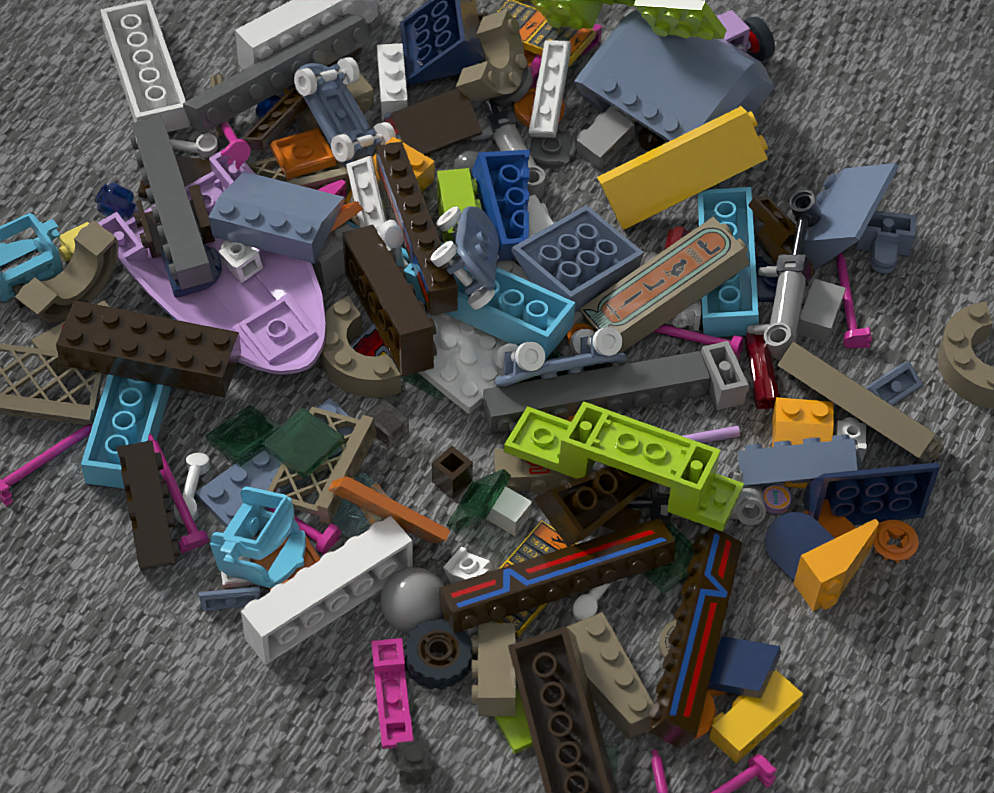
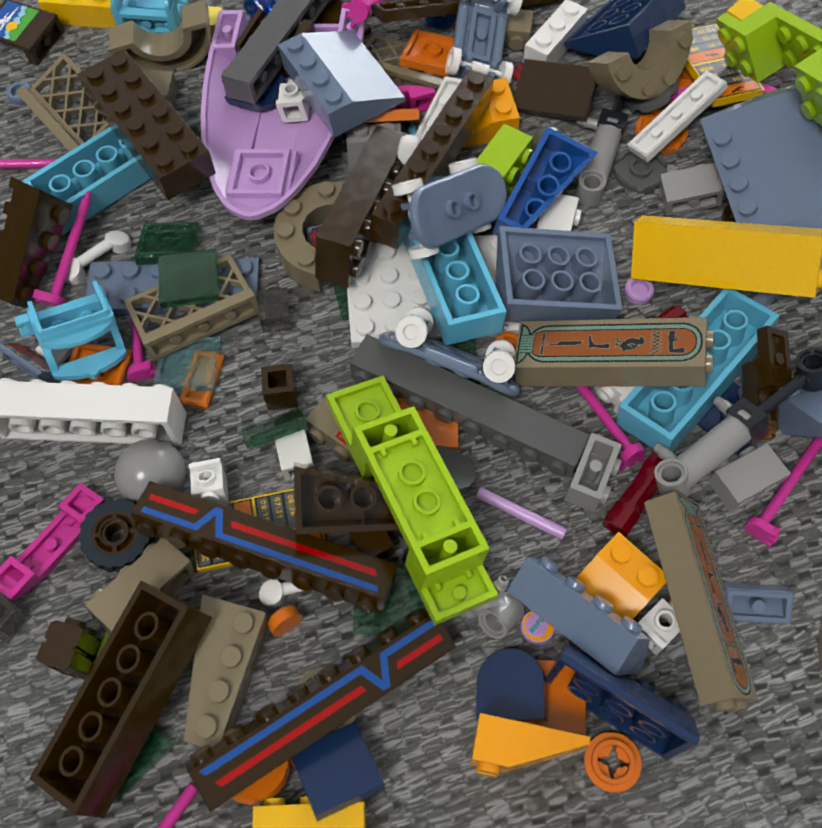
camera: 45 degrees right, 10 degrees up
(384, 507) = (180, 381): orange tile -> none
(494, 736) = (69, 648): none -> dark brown brick
(613, 614) = (284, 620): none -> orange tile
(636, 234) = (638, 291): none -> lavender tile

